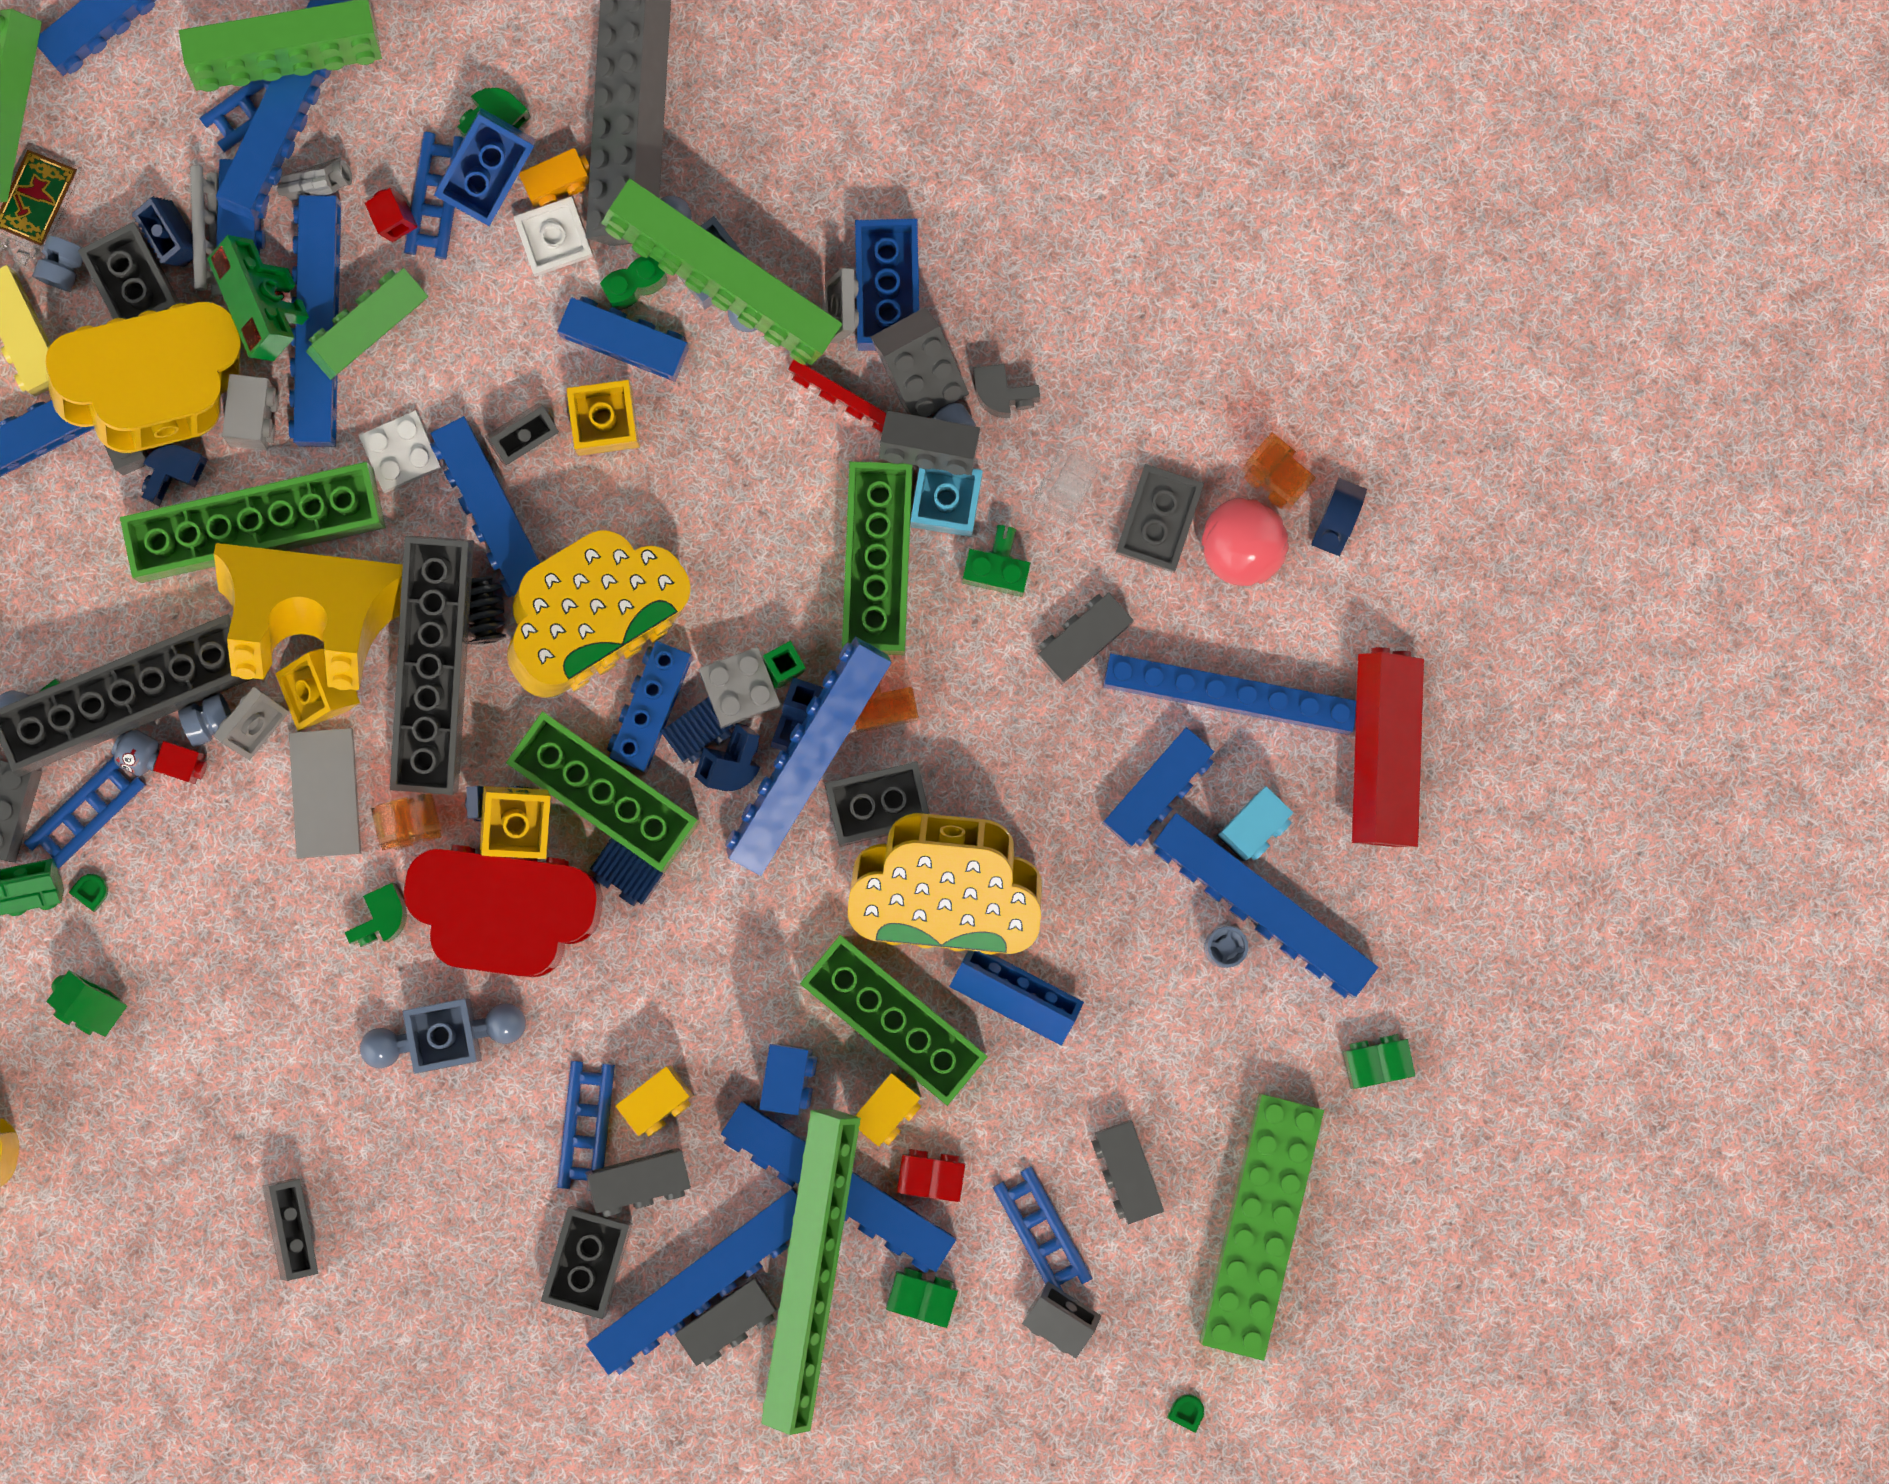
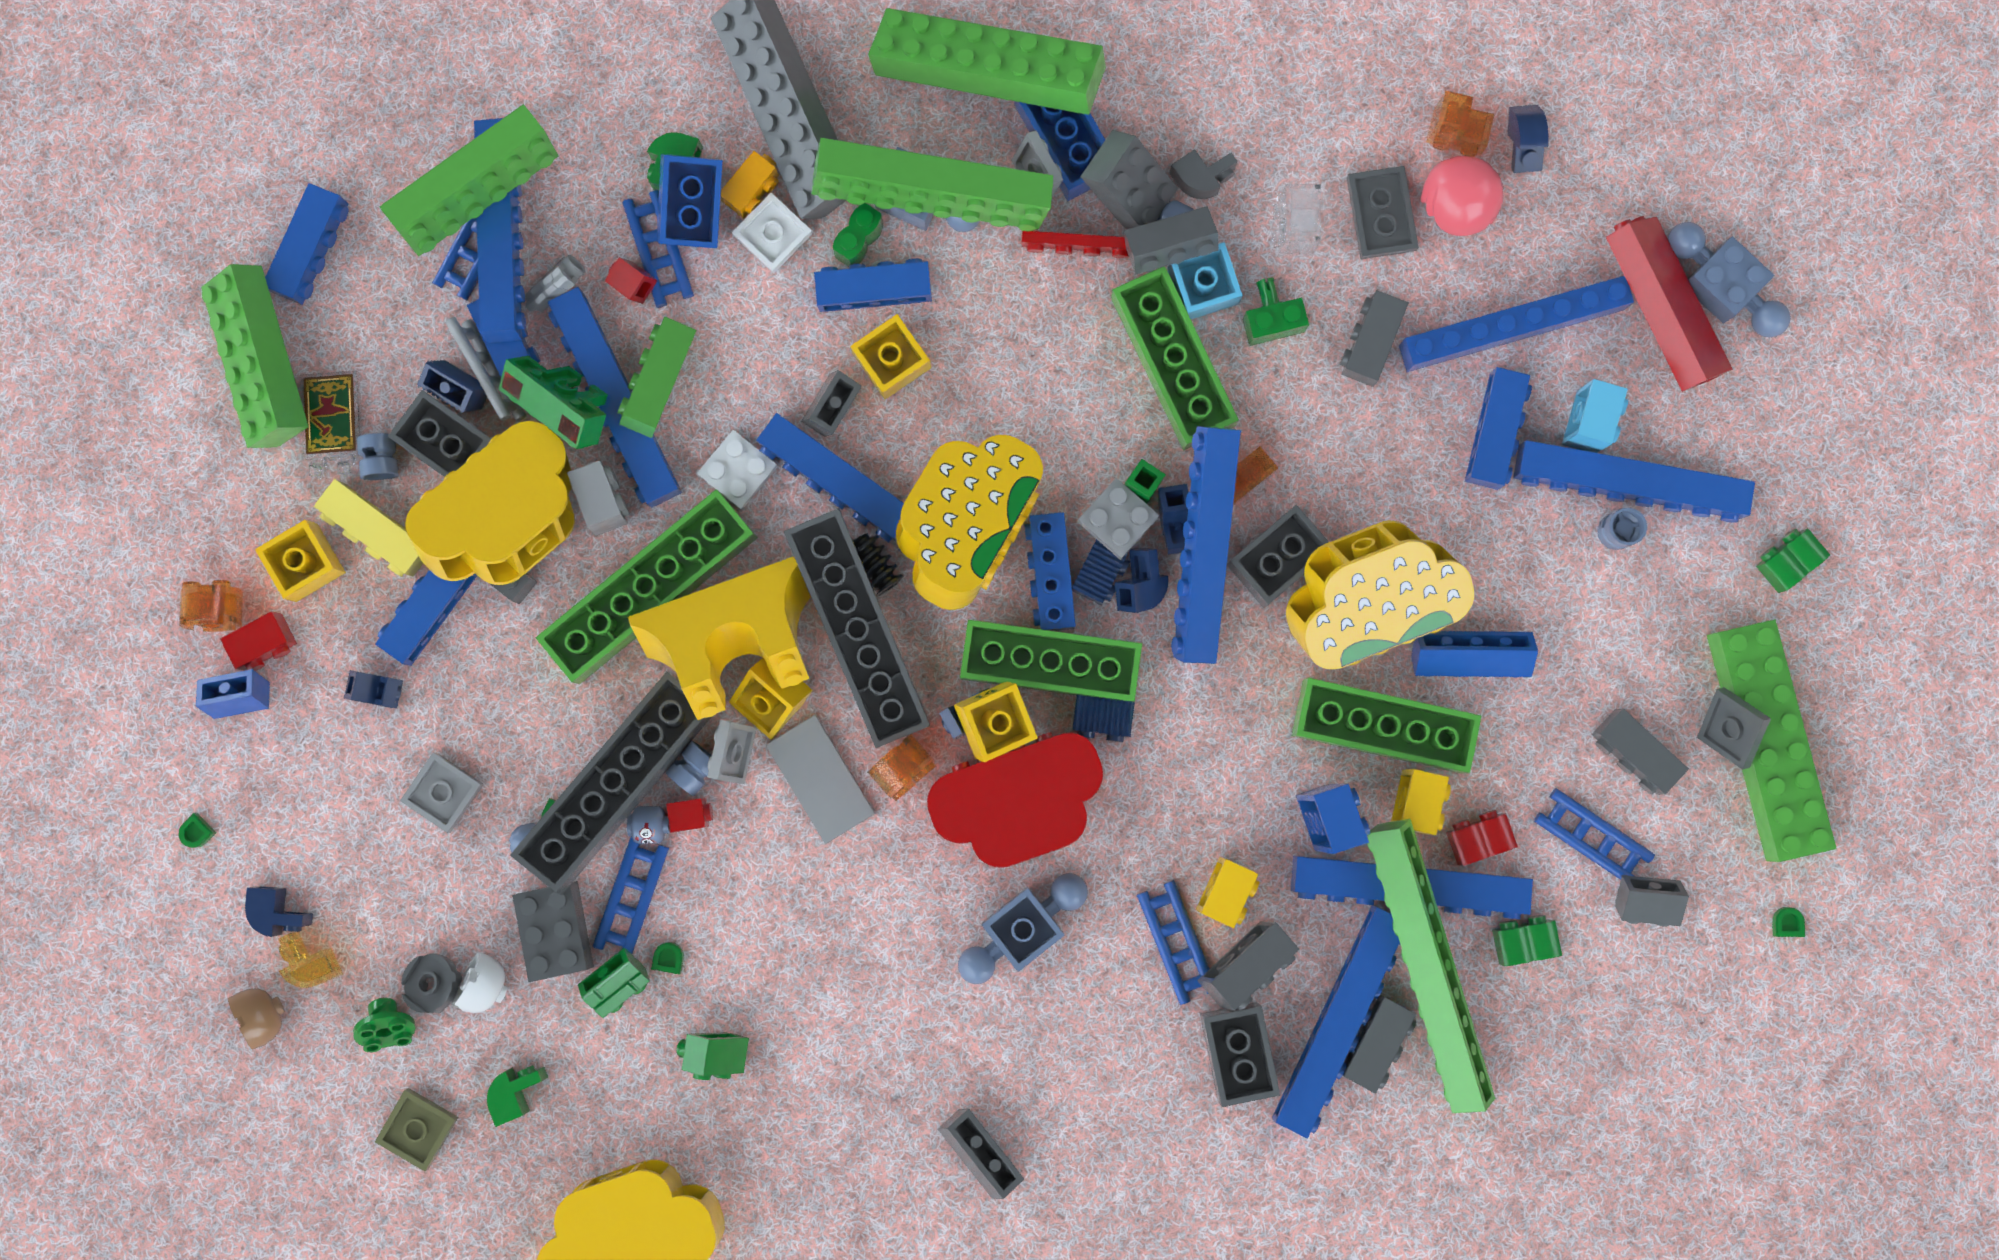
camera: 20 degrees left, 0 degrees up
(168, 464) = (557, 572): dark blue brick -> none
(388, 916) = (925, 851): green brick -> none
(844, 176) = (988, 60): none -> bright green brick
(1225, 1193) = (1733, 728): none -> dark grey plate
(1462, 757) = (1729, 280): none -> sand blue brick

